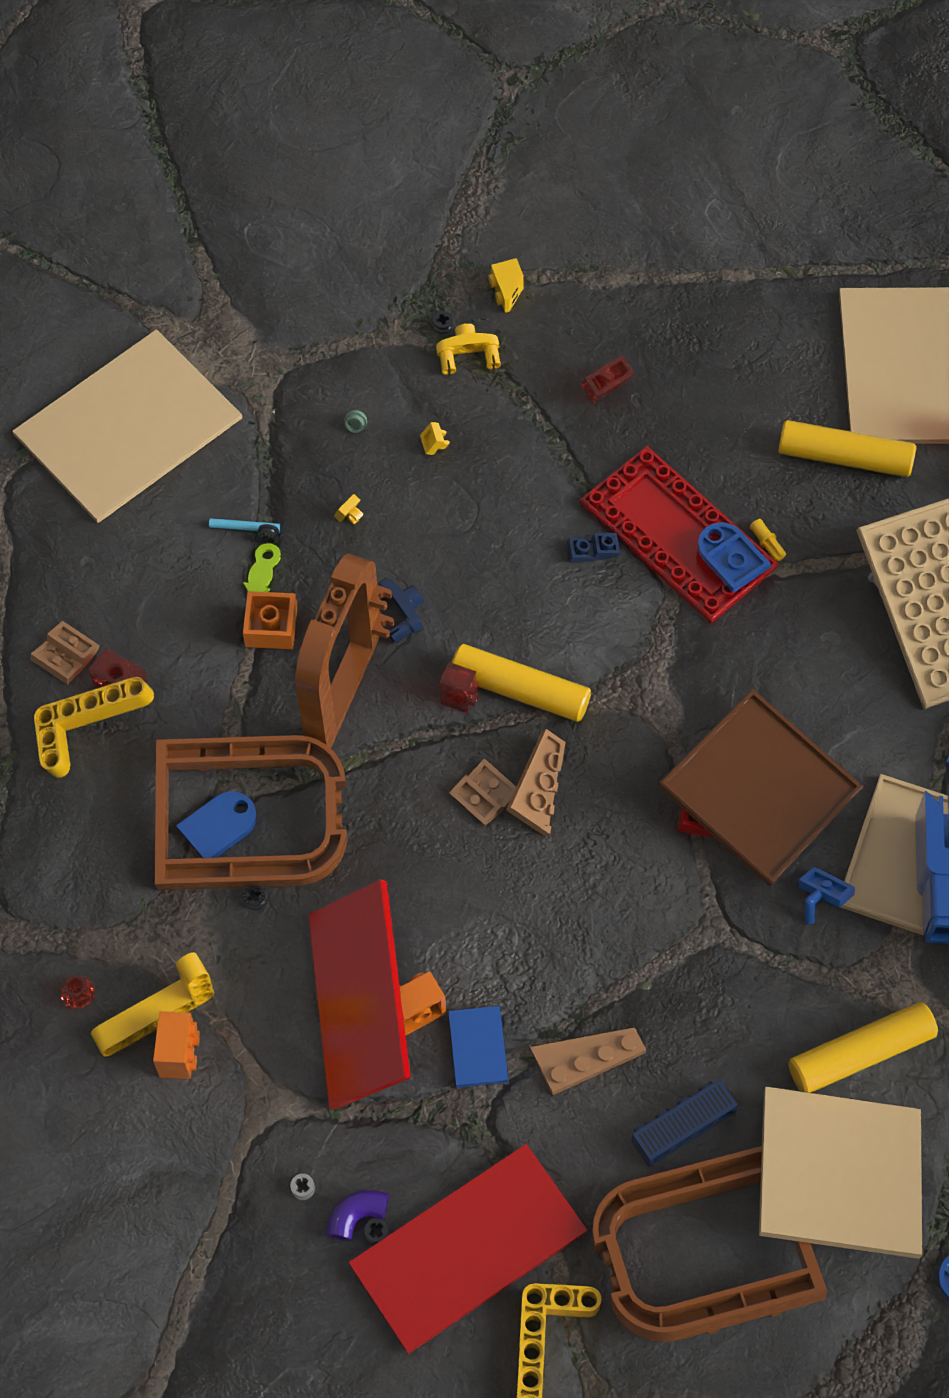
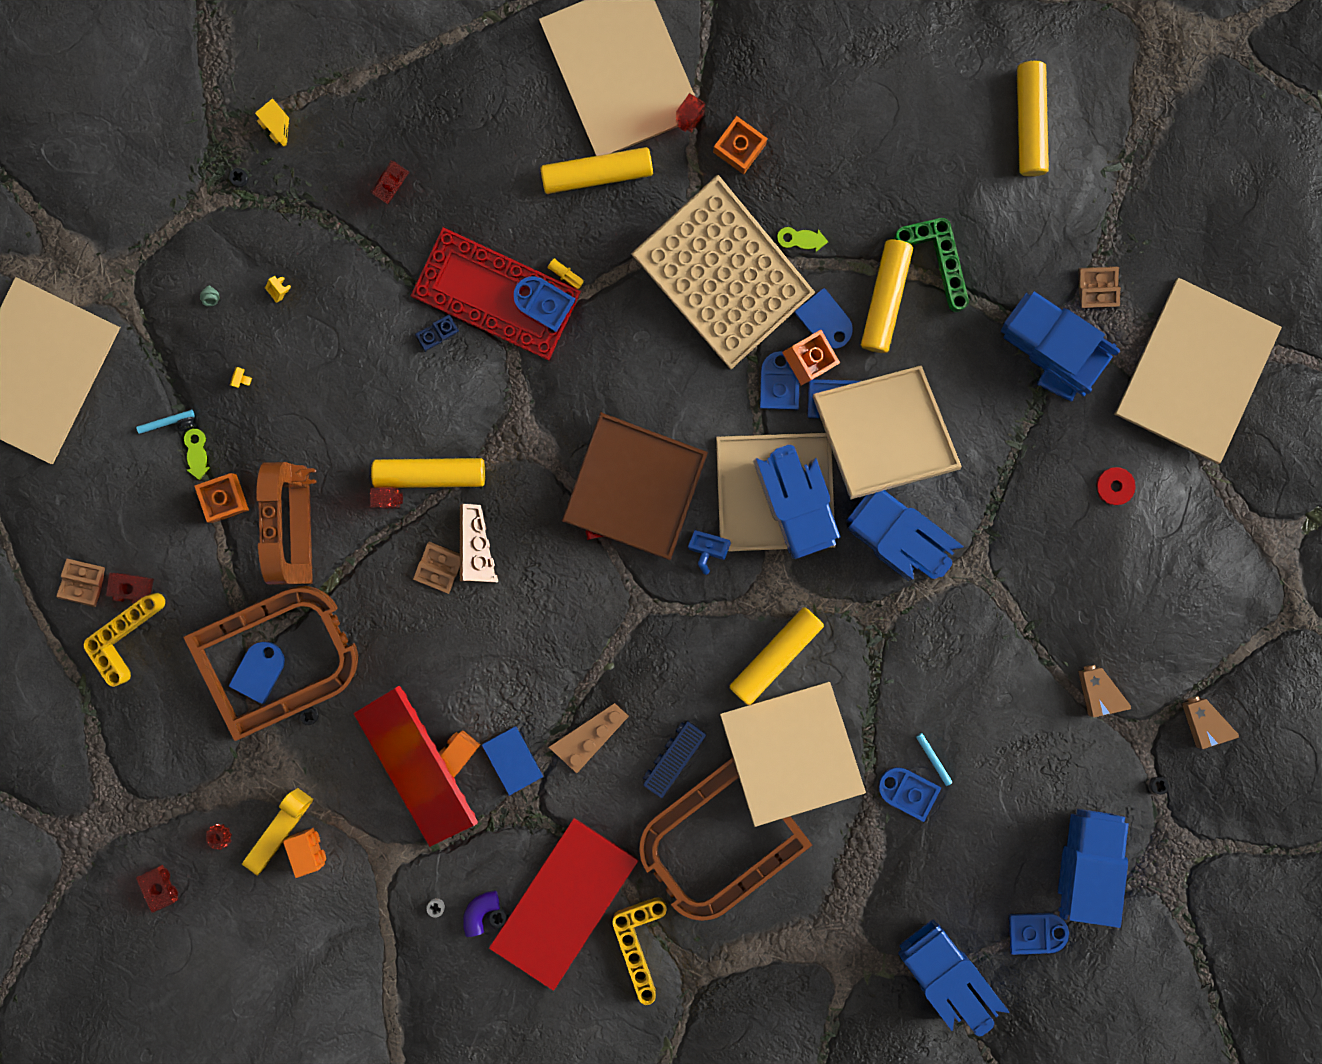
camera: 30 degrees left, 25 degrees up
(406, 601) = (316, 439): dark blue connector -> none
(468, 342) = (265, 189): yellow connector -> none

